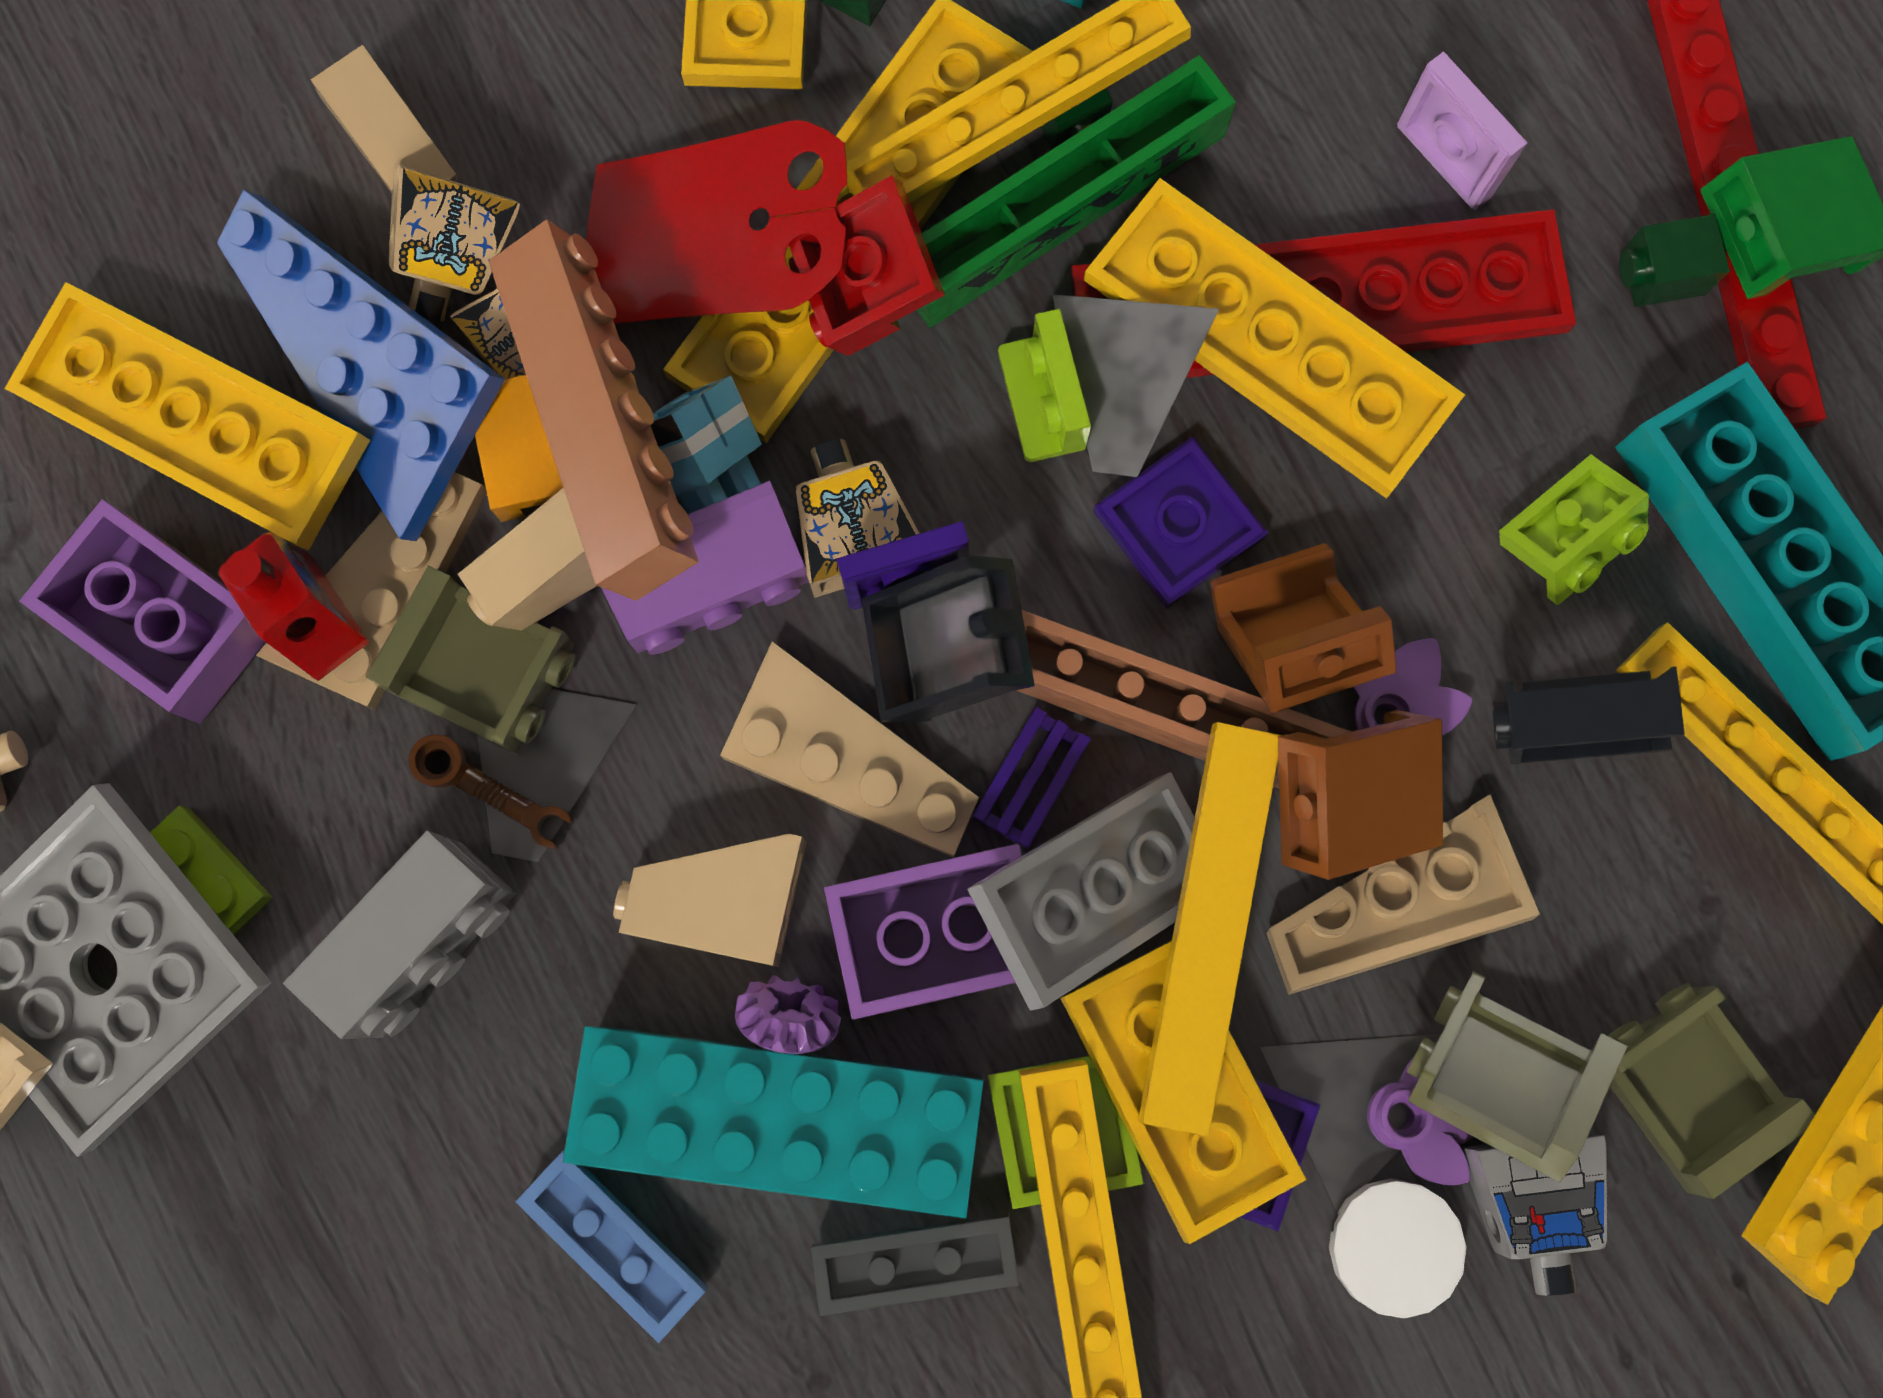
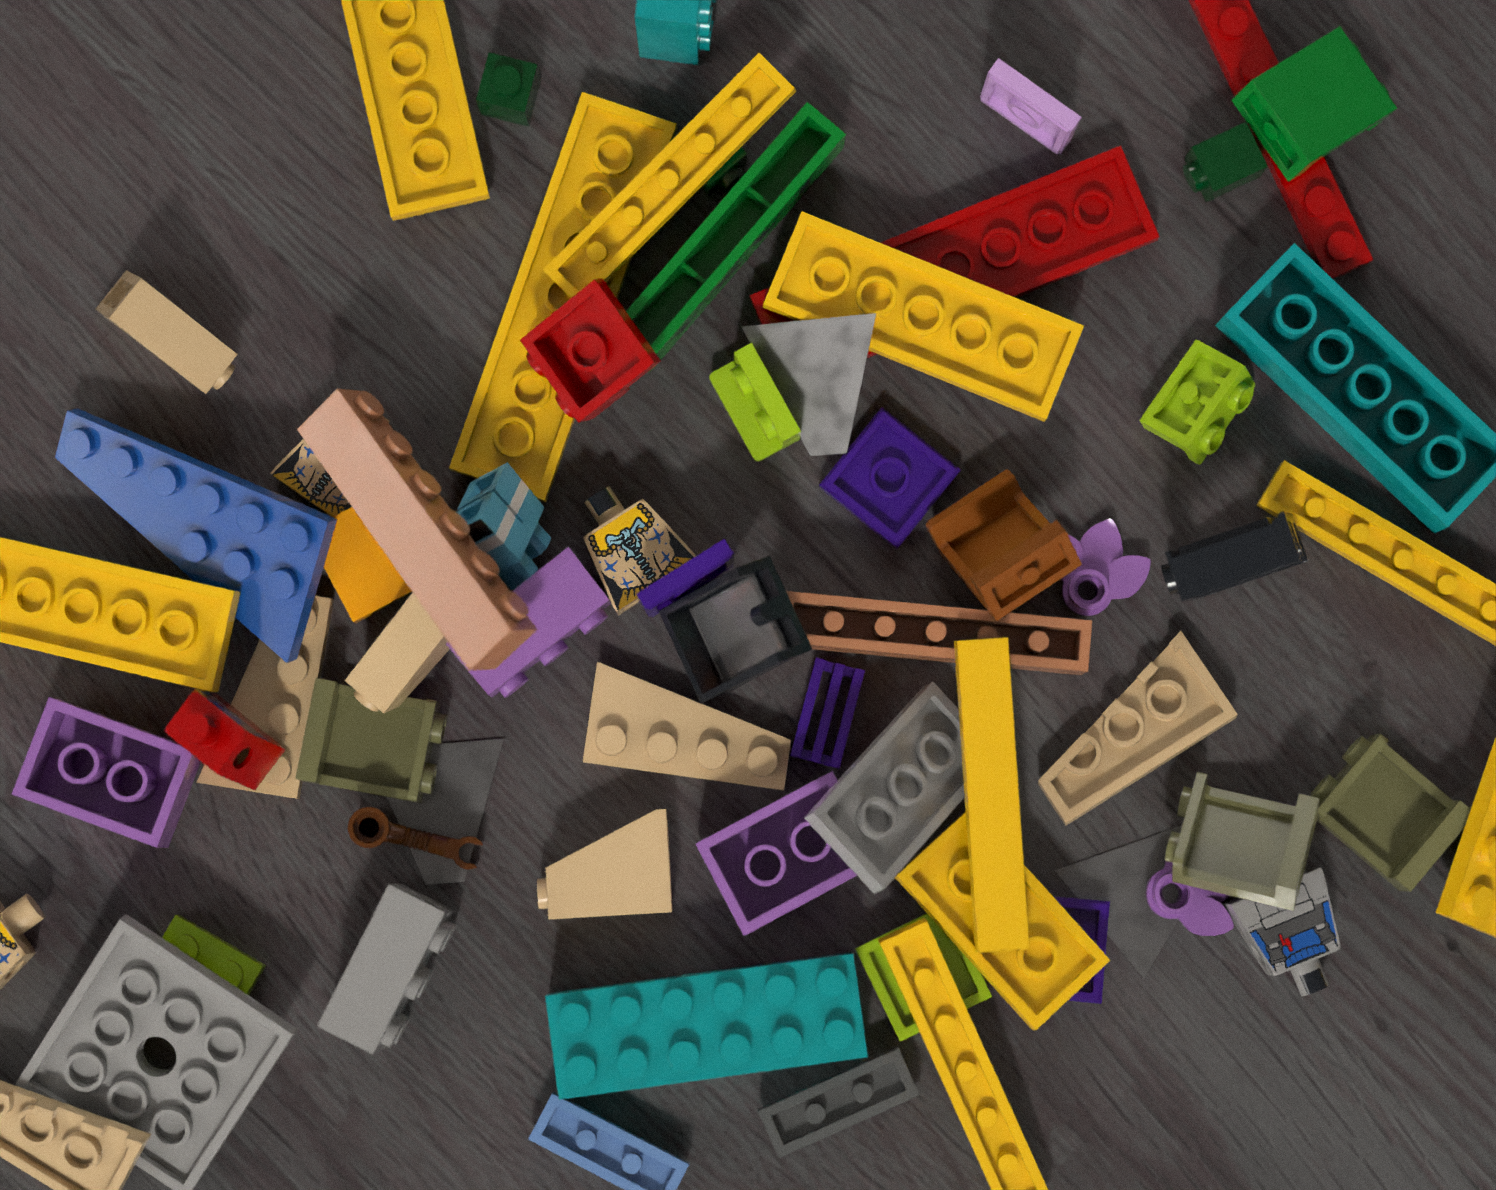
camera: 20 degrees left, 5 degrees up
(444, 236) = (245, 408): torso -> none
(679, 231) = (429, 347): red piece -> none
(805, 1024) = (706, 950): medium lavender gear -> none
(1361, 795) = (1080, 664): dark orange panel -> none
(1397, 1248) = (1192, 991): white tile -> none

